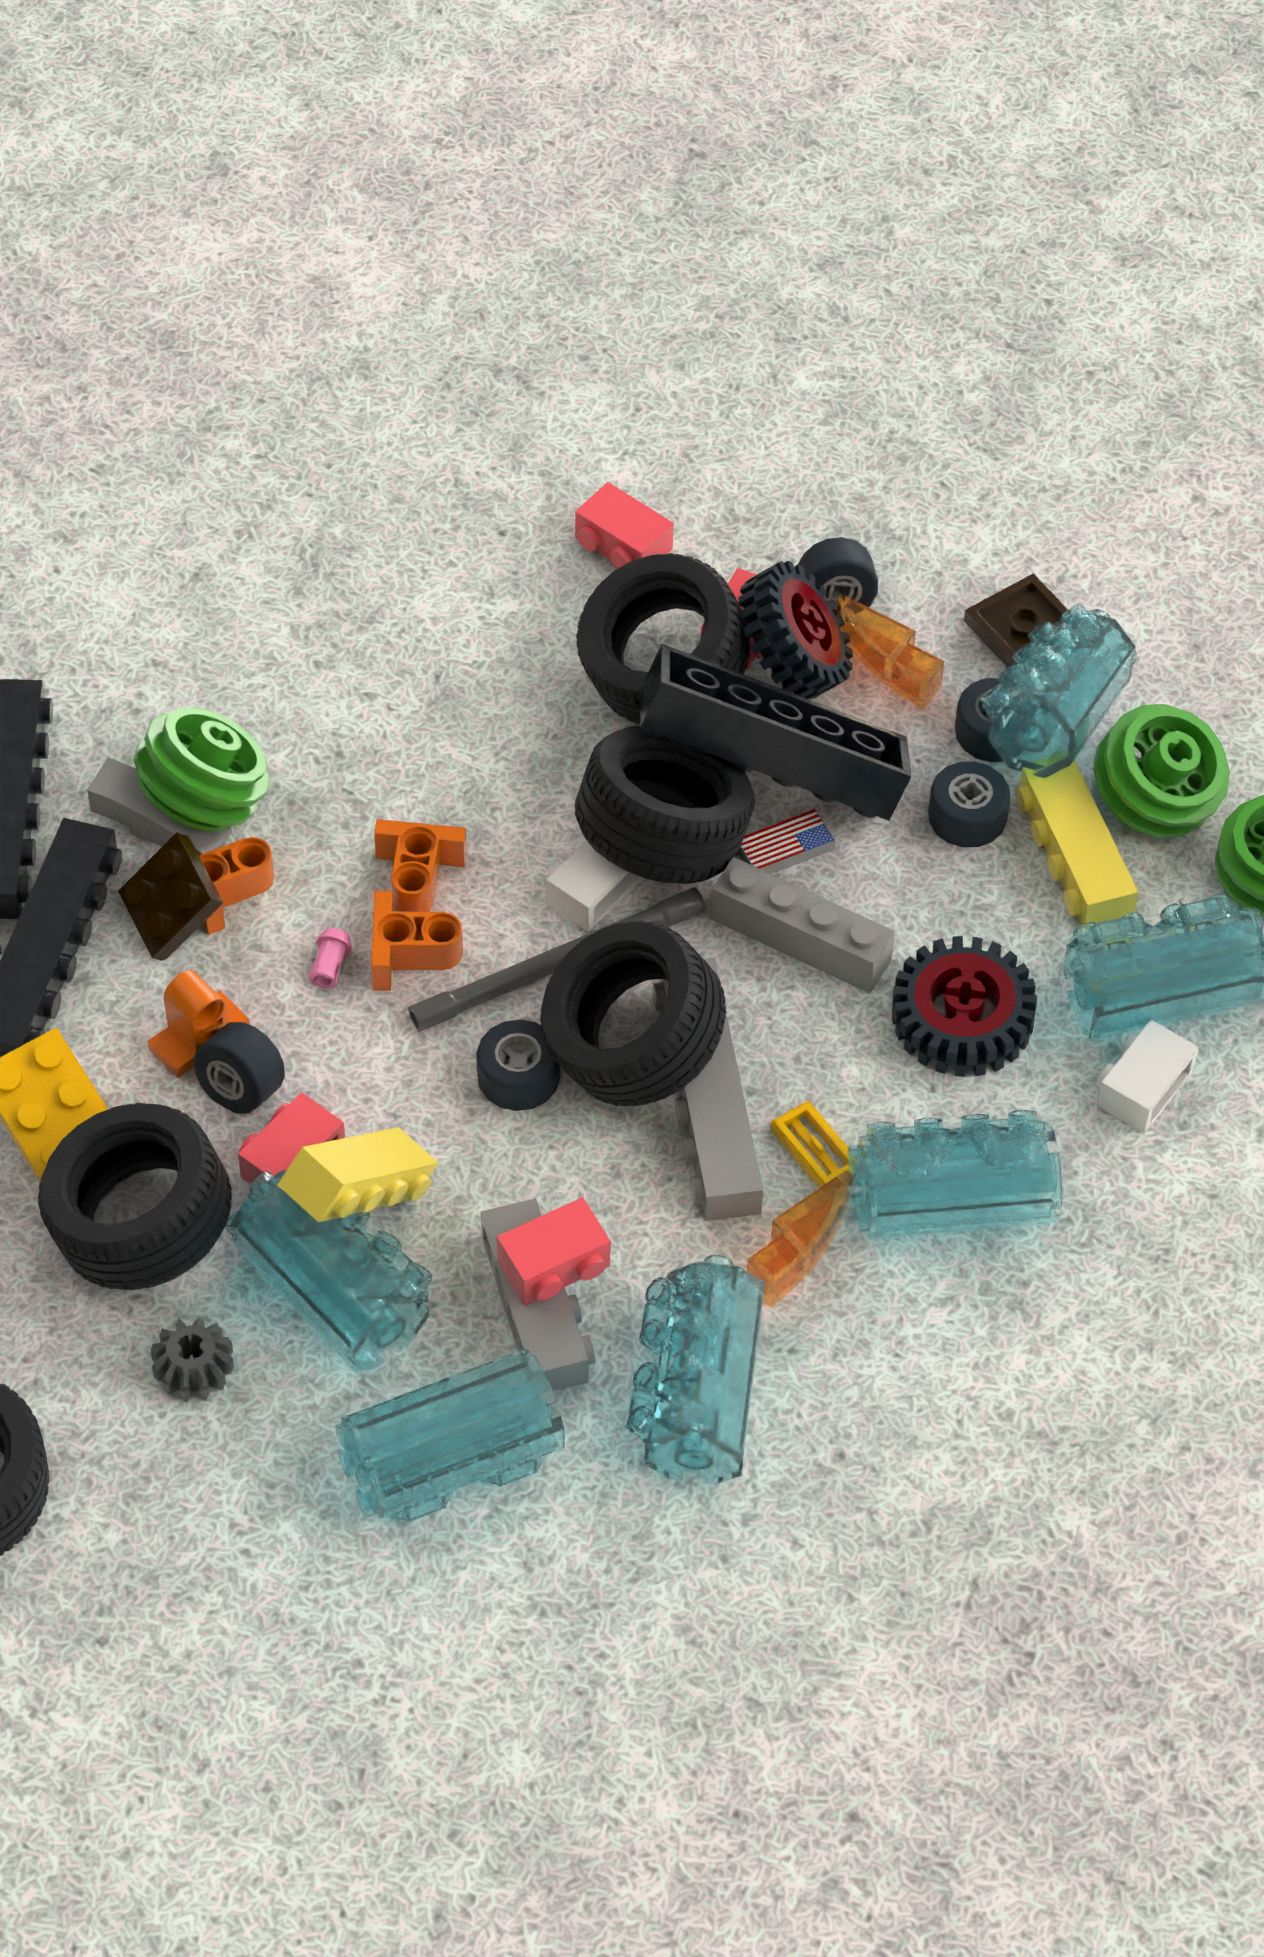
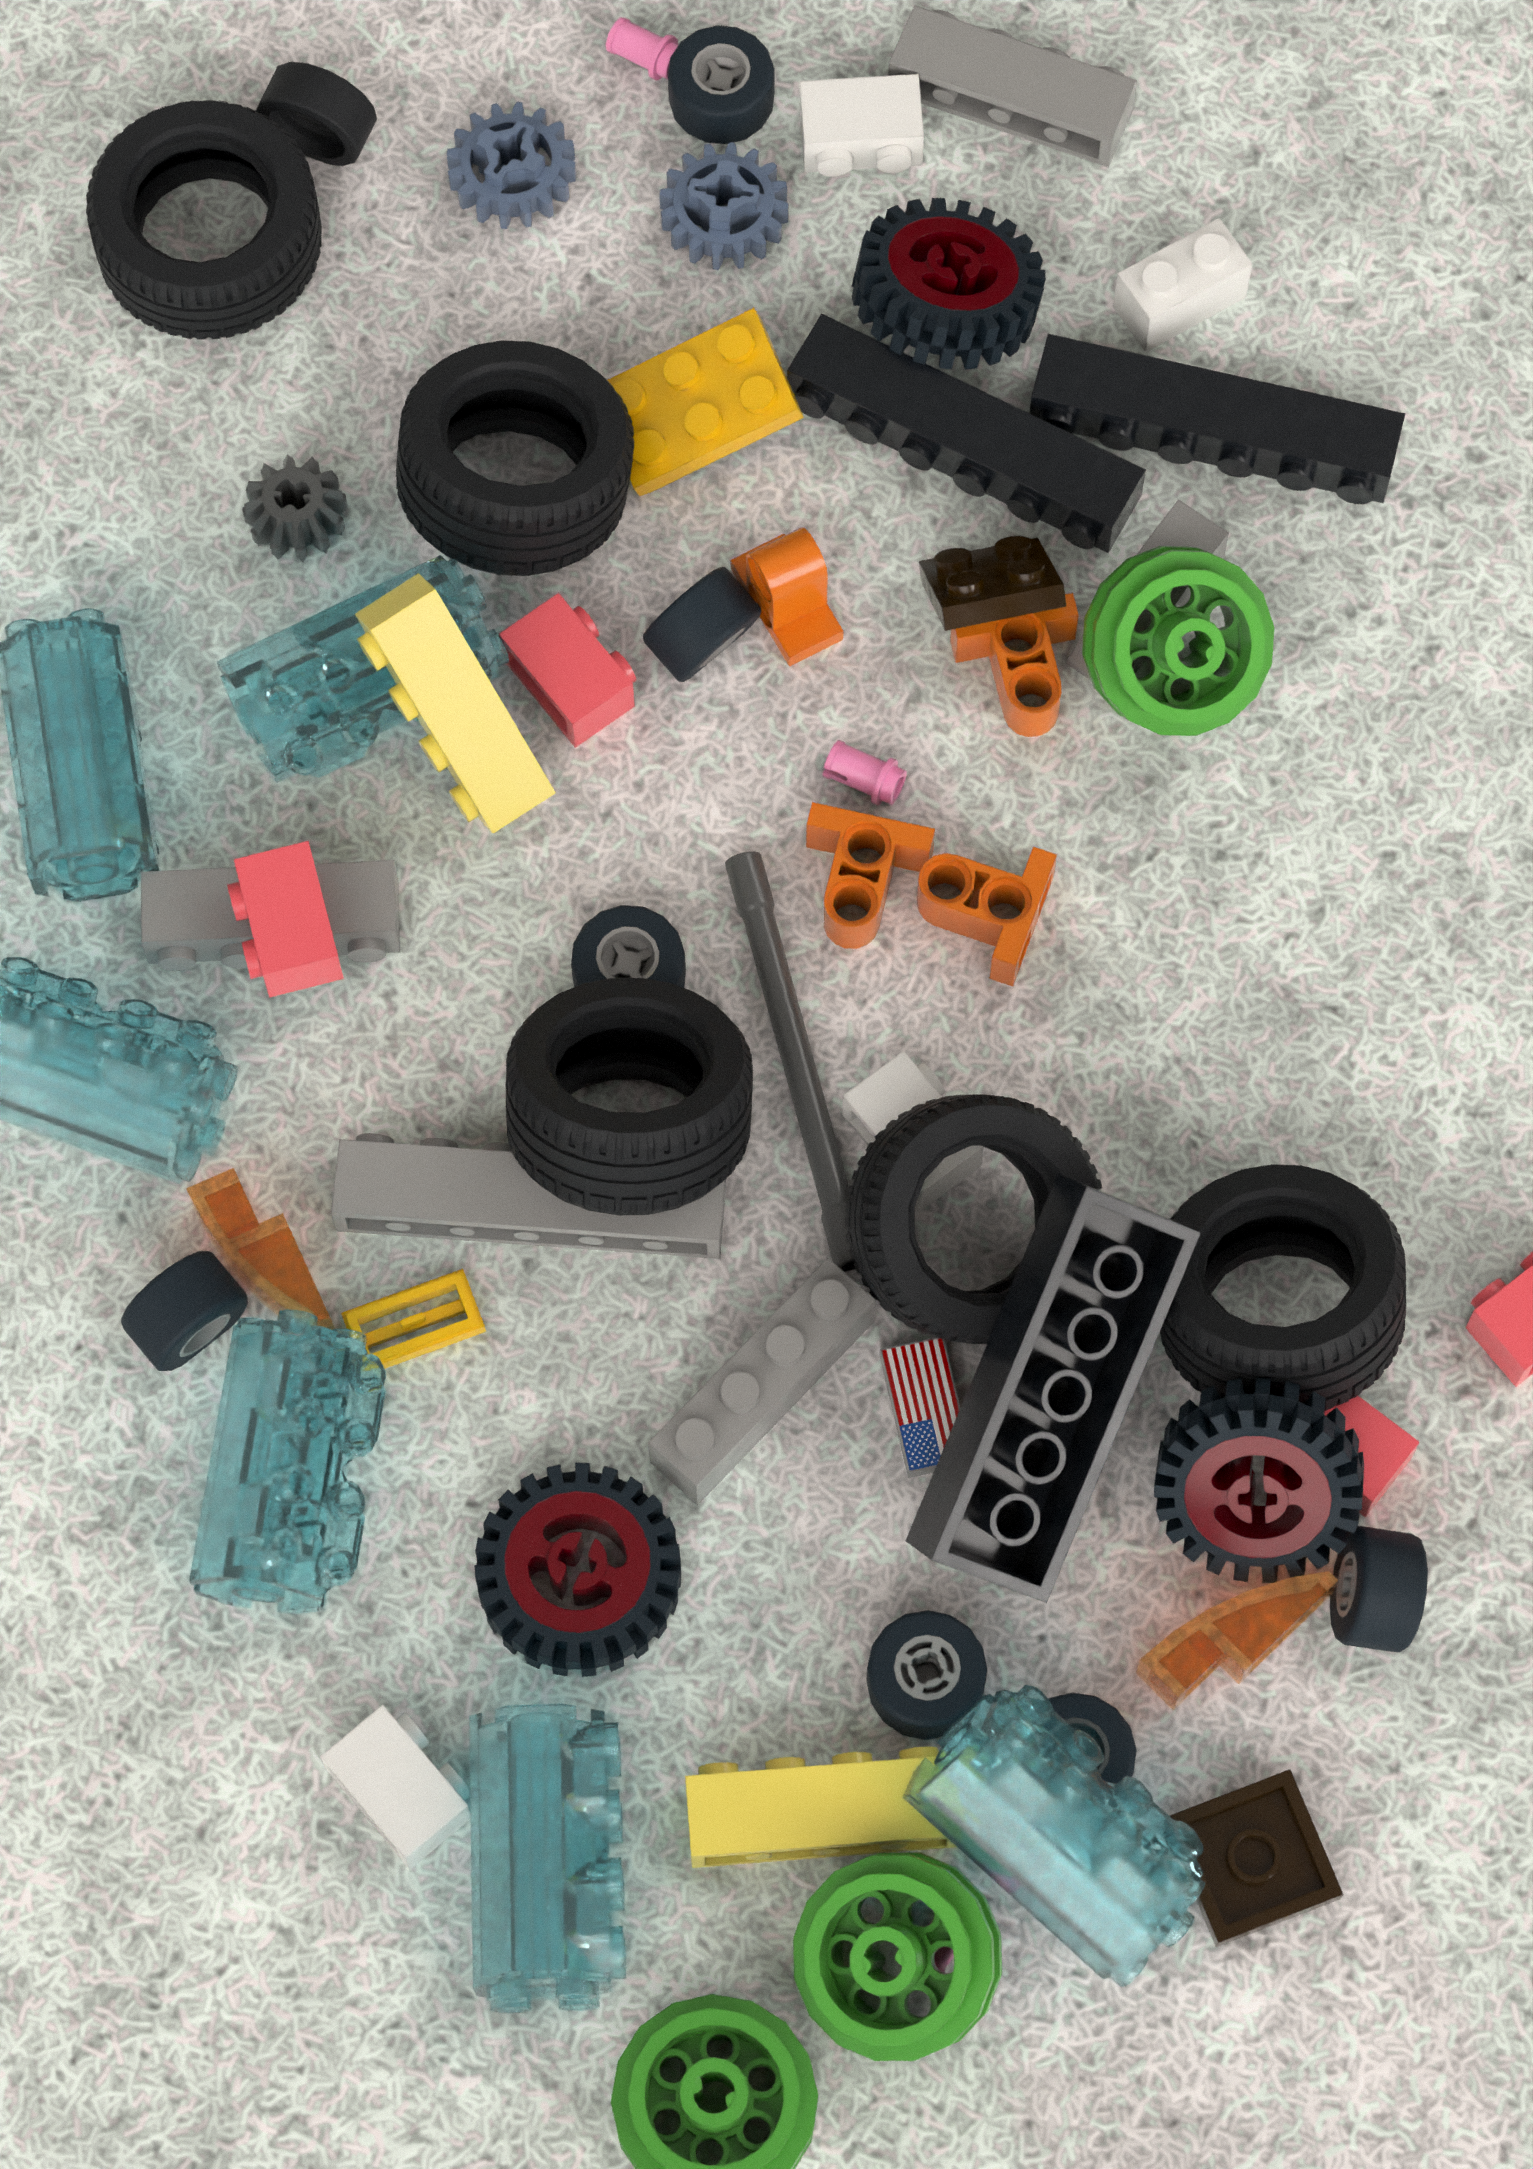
camera: 105 degrees right, 15 degrees up
(860, 1272) = (184, 1310): none -> black wheel

